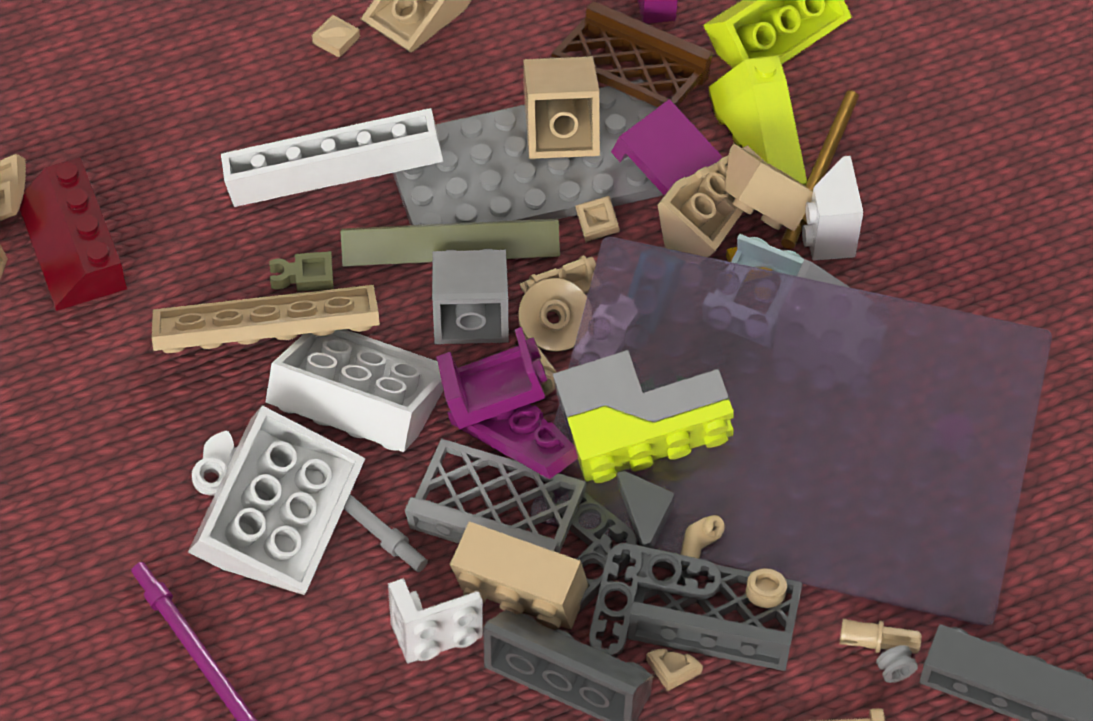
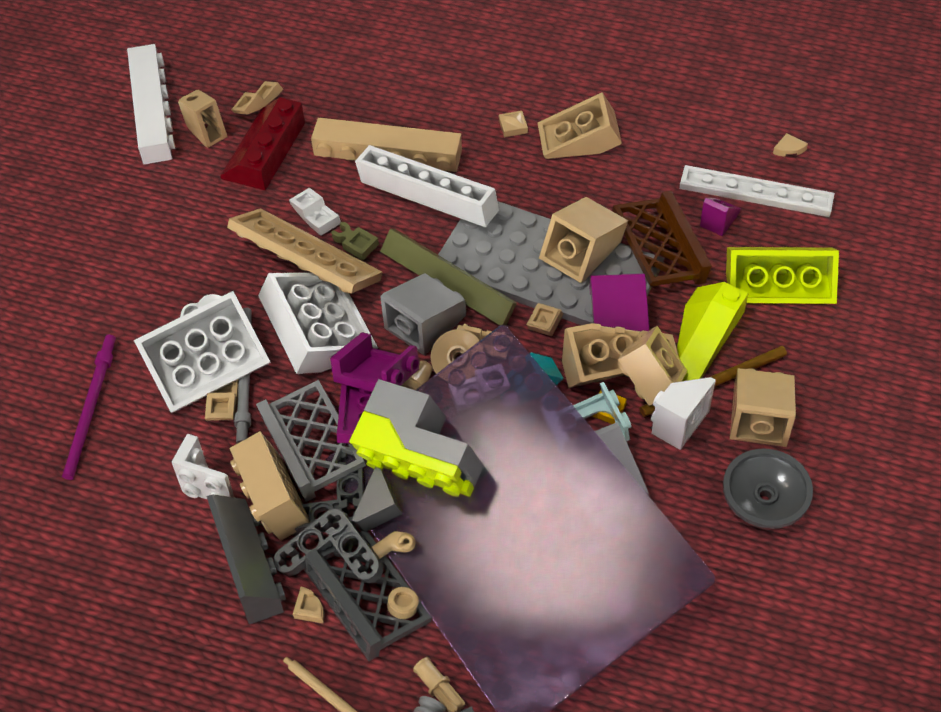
camera: 45 degrees right, 0 degrees up
(195, 155) = (350, 139): none -> tan brick
(211, 272) = (314, 212): none -> white slope
(354, 542) = (222, 403): none -> tan slope
(898, 158) = (763, 407): none -> tan slope
(981, 218) = (769, 475): none -> dark grey dish

